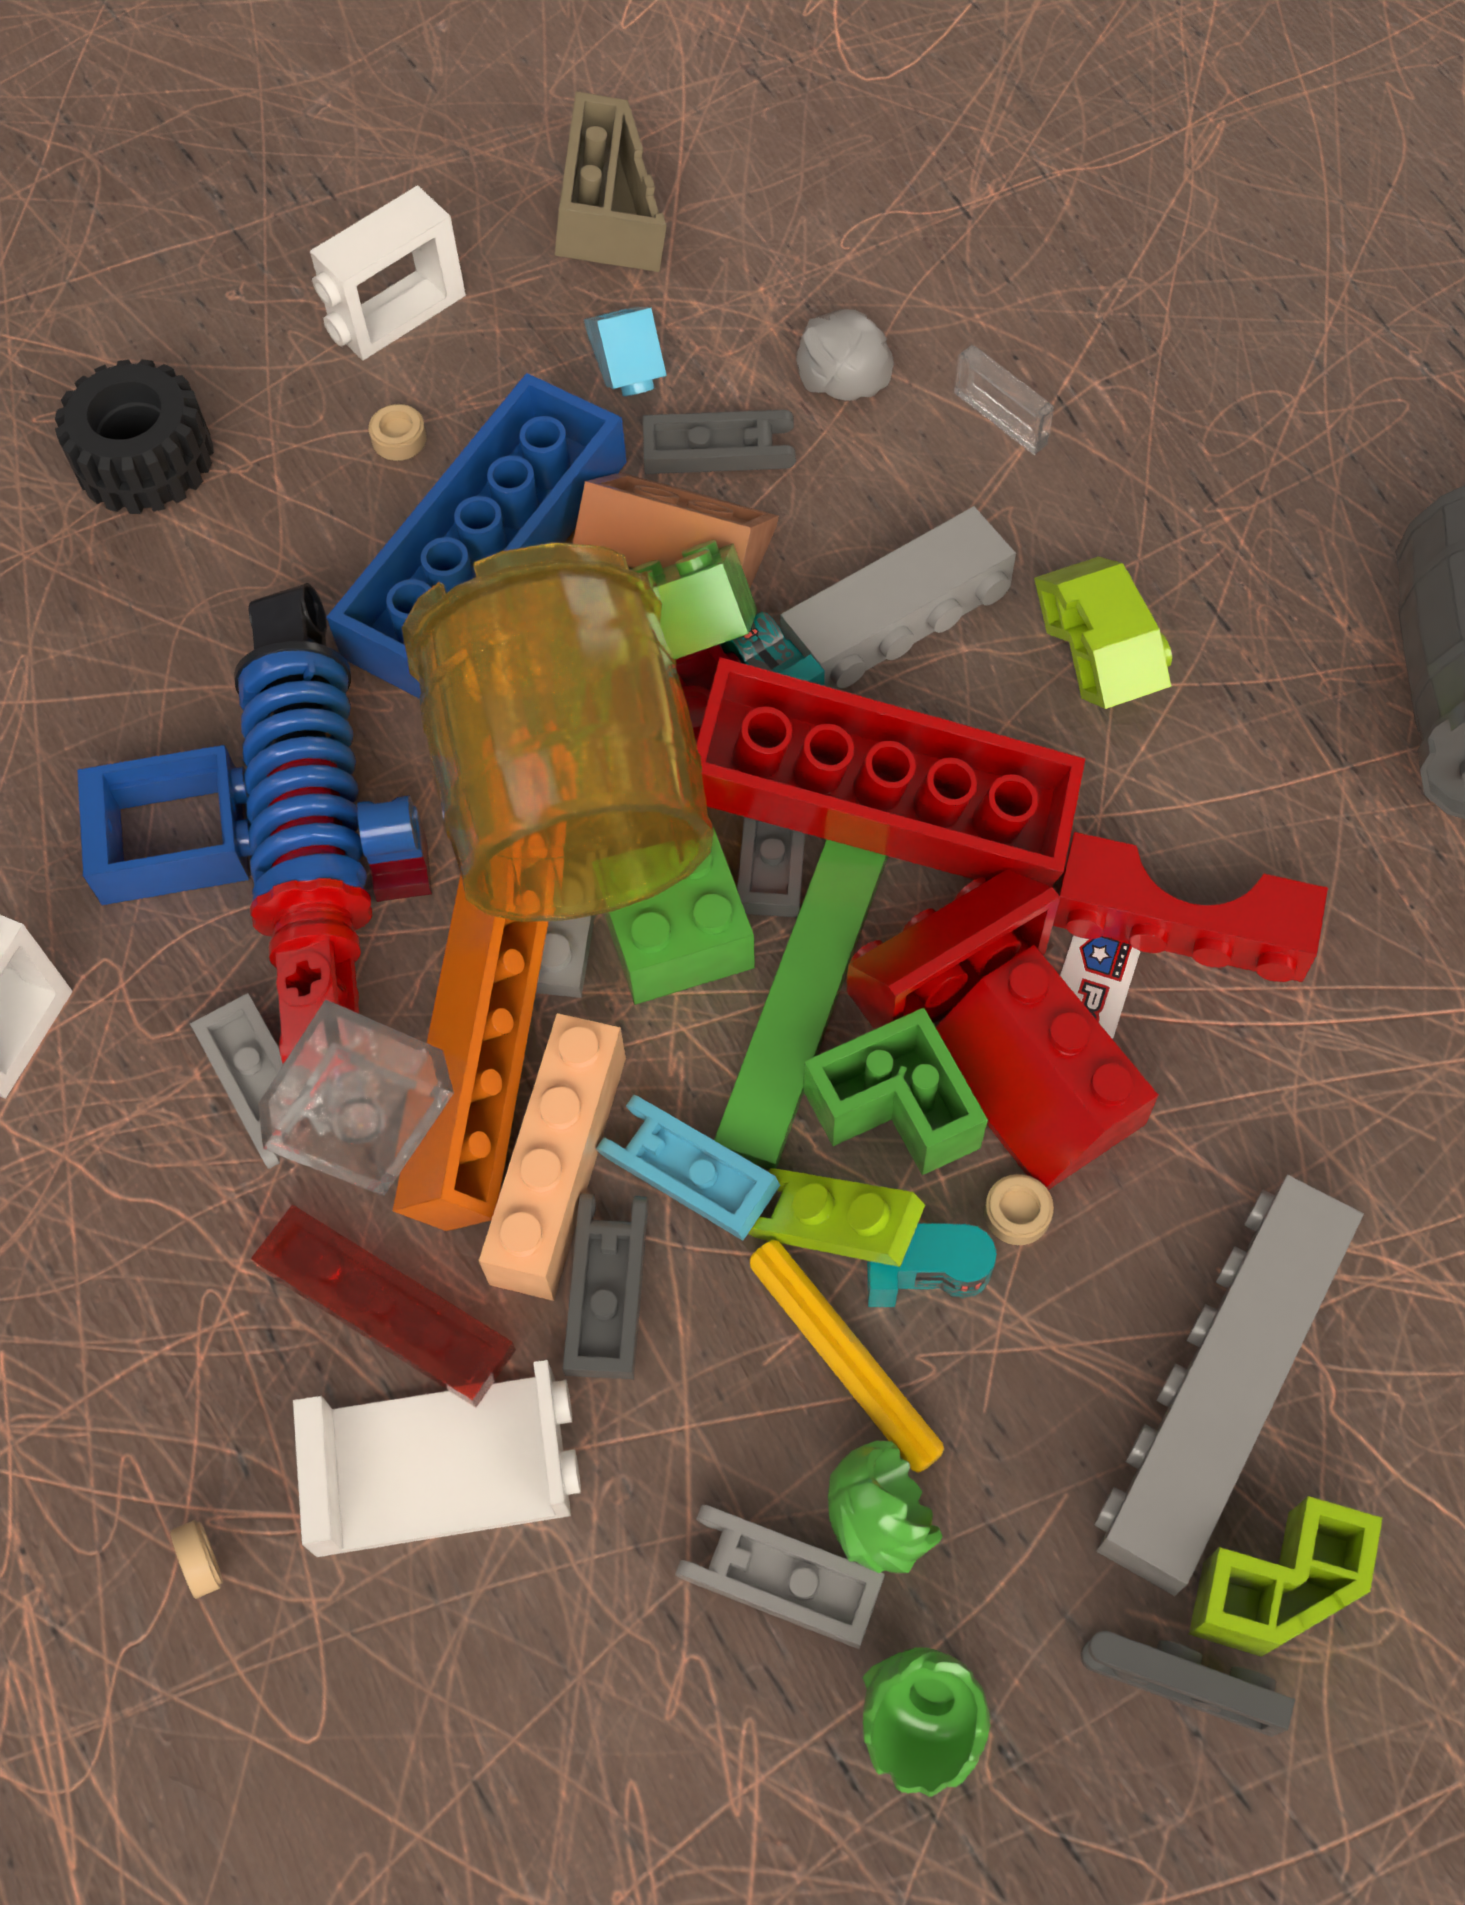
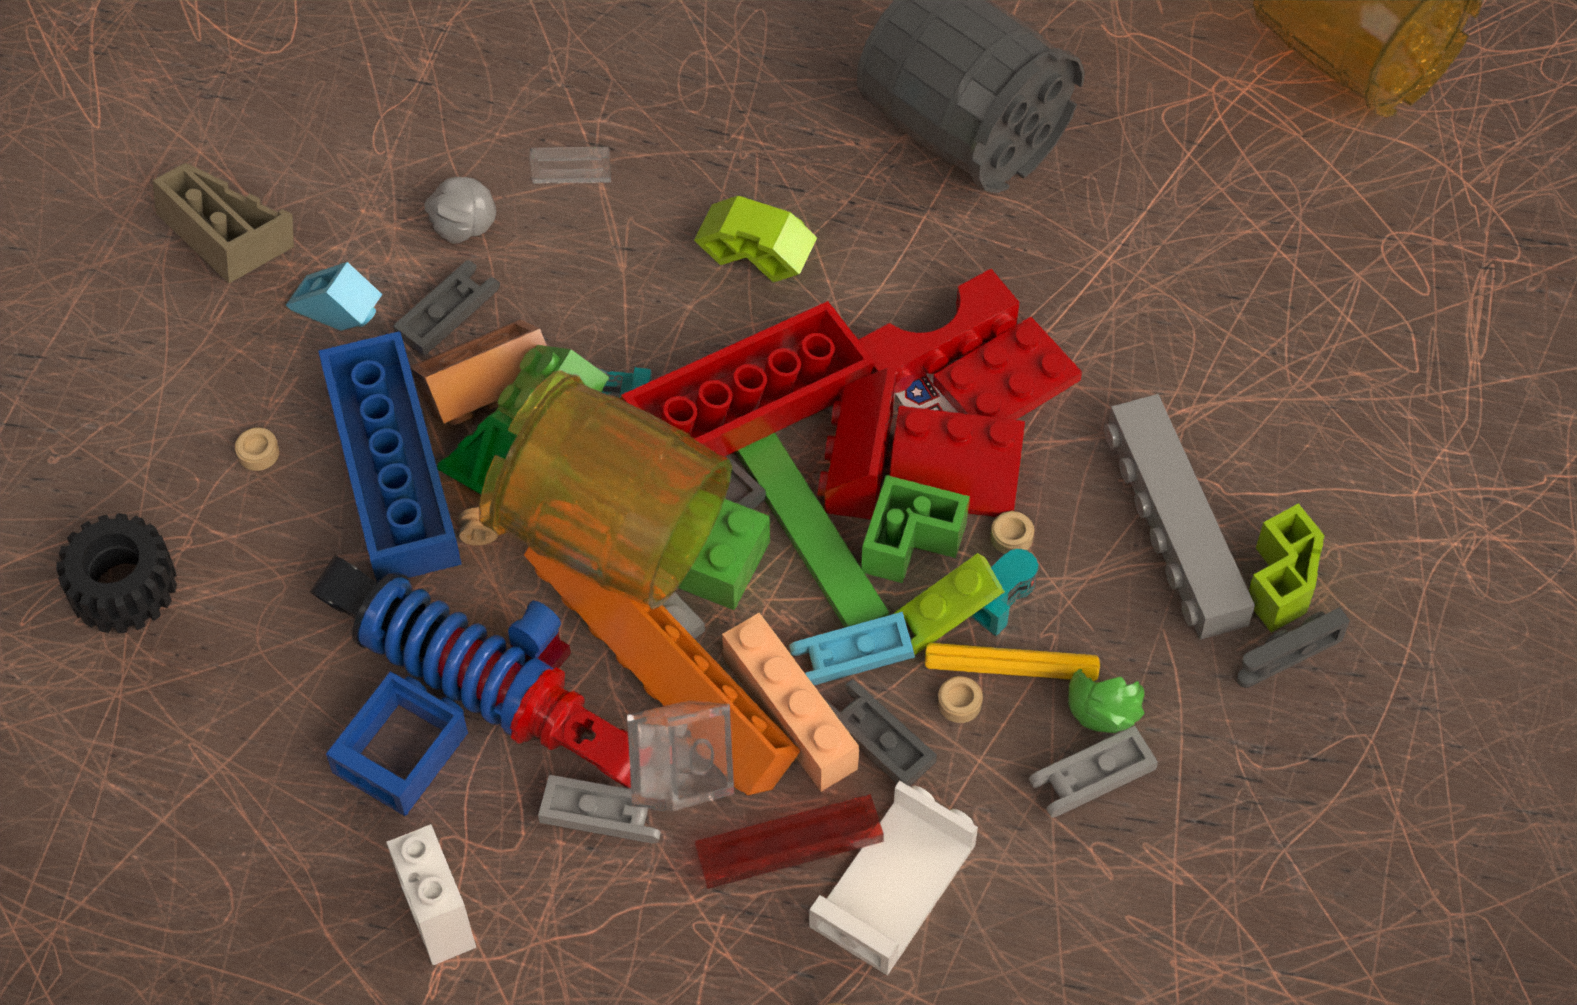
camera: 50 degrees left, 5 degrees down
(370, 245) = (160, 365): white window -> none
(741, 1337) = (960, 699): none -> tan tile
(902, 598) = (639, 302): light grey brick -> none
(924, 1720) = (1215, 759): bright green hair -> none
(1220, 1030) = (1008, 374): none -> red plate

